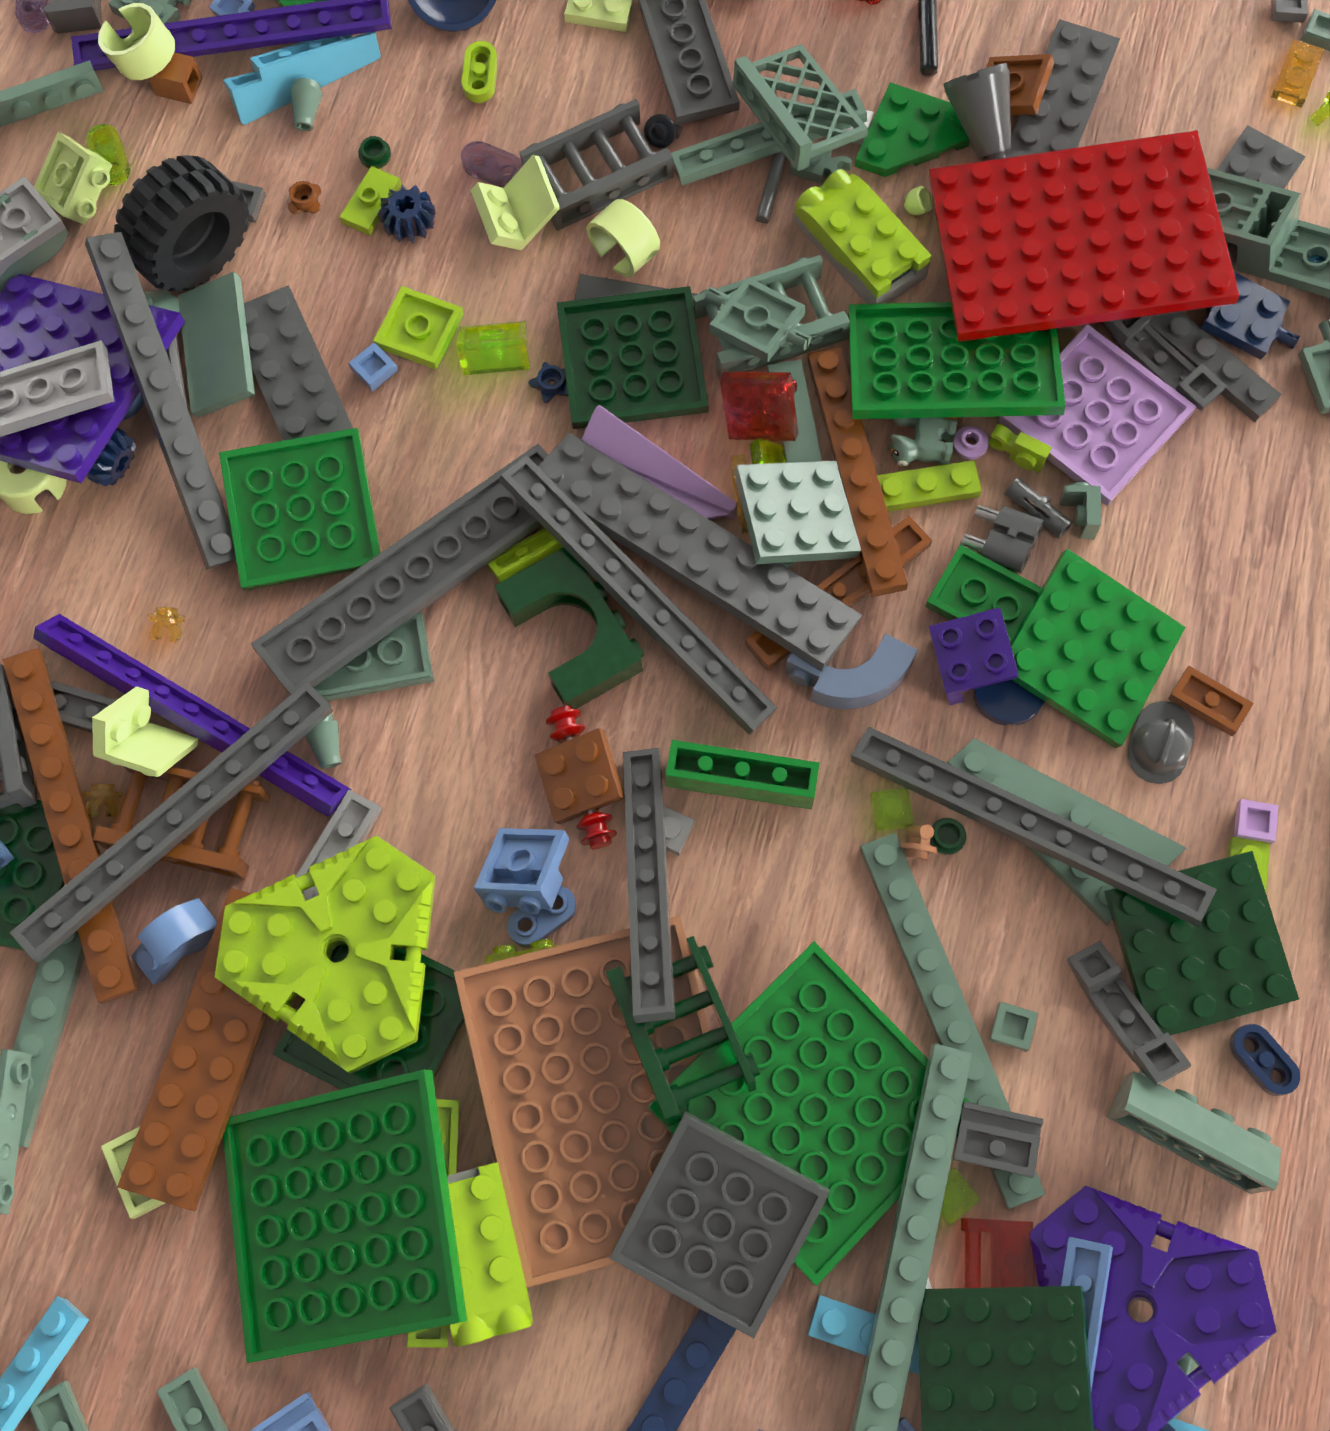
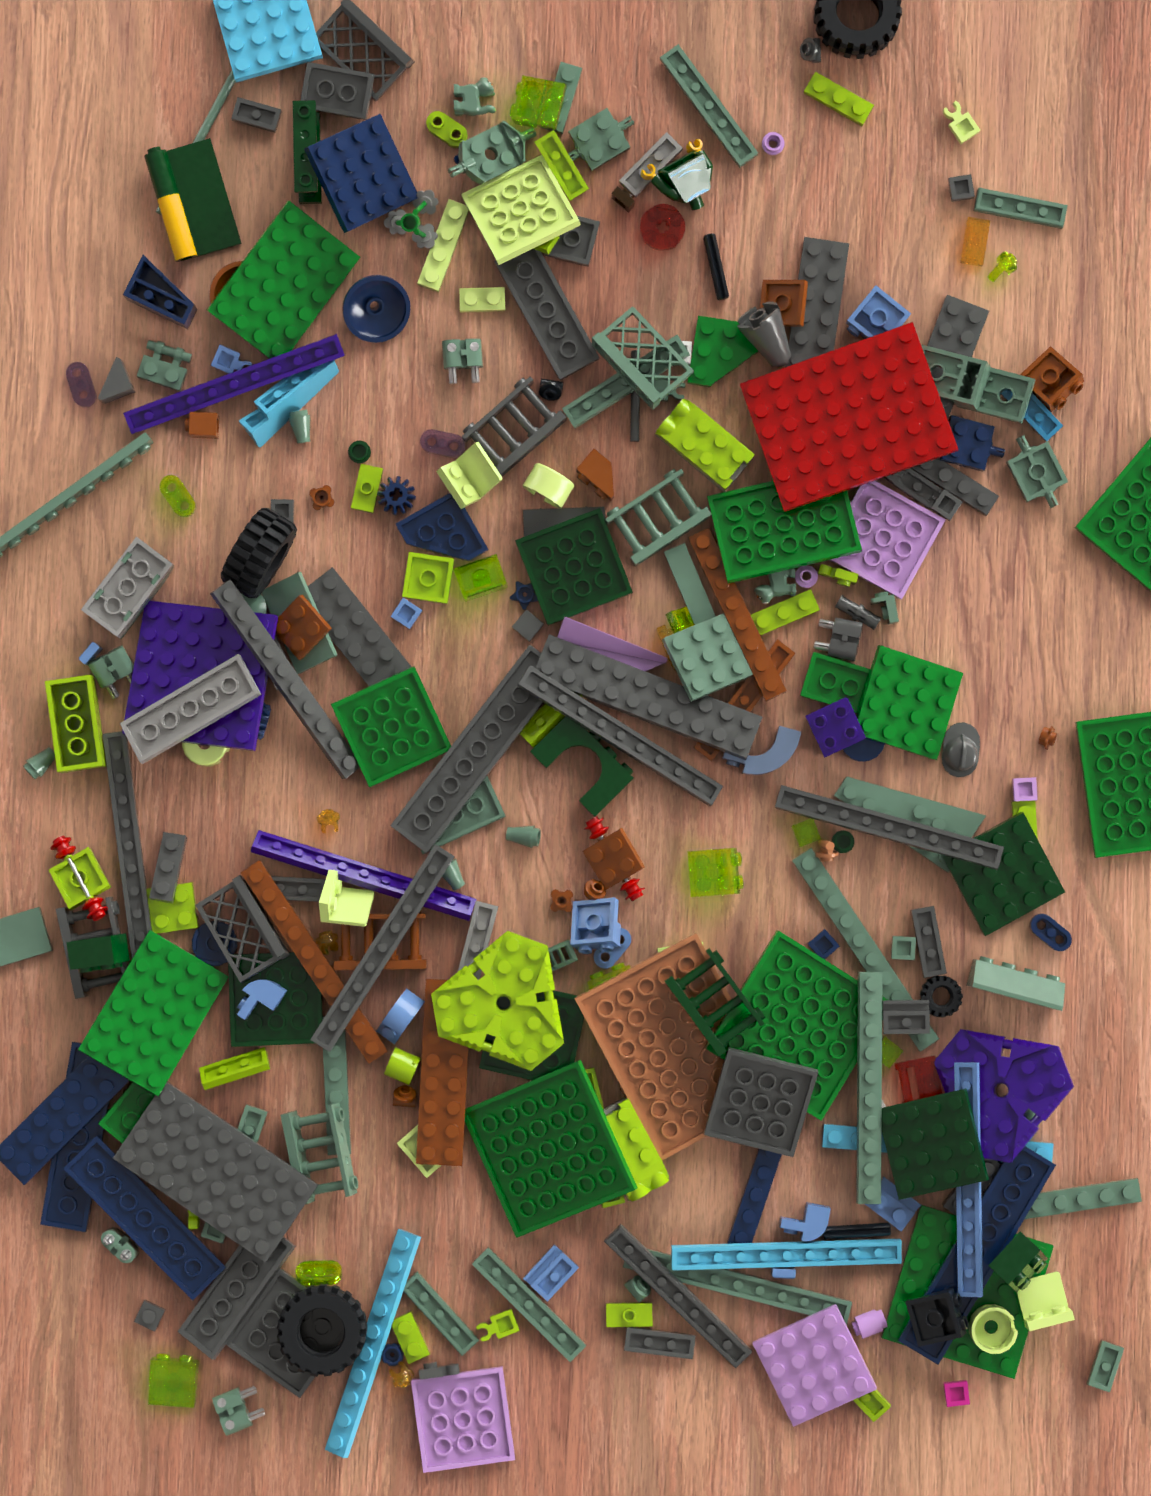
camera: 15 degrees left, 15 degrees up
(72, 179) = (163, 525): yellowish green plate -> none
(140, 1073) = (404, 1096): none -> dark orange plate
(145, 49) = (167, 419): yellowish green piece -> none
(150, 1020) = (402, 1066): none -> lime piece
(213, 344) = (301, 627): none -> dark orange plate
(454, 712) = (525, 835): none -> sand green cone
(459, 270) = (443, 530): none -> dark blue plate
(473, 829) = (566, 905): none -> dark orange plate
(474, 913) = (573, 958): none -> sand green slope
(479, 74) = (413, 372): lime plate -> none
(536, 816) = (594, 890): none -> dark orange plate
(543, 422) = (527, 625): none -> dark grey tile
(551, 64) = (462, 354): none -> sand green piece
(648, 887) = (673, 918): dark grey plate -> none
(676, 830) = (675, 877): light grey plate -> none
(698, 242) = (598, 472): none -> dark orange slope
(733, 833) = (715, 872): none -> clear neon green plate
(742, 774) = (712, 835): green brick -> none
(757, 319) = (652, 529): sand green plate -> none
(759, 405) = (667, 589): clear red plate -> none
(883, 988) = (823, 944): none -> dark blue plate
(918, 201) = (737, 401): yellowish green hinge -> none
(1057, 1027) = (928, 941): none -> dark grey plate
(1085, 1118) = (954, 991): none -> black tyre
(1124, 1015) = (966, 925): dark grey slope -> none
(1141, 117) = (876, 315): none -> medium blue plate
(1210, 701) = (985, 718): dark orange plate -> none
(1305, 750) = (1047, 737): none -> dark orange plate

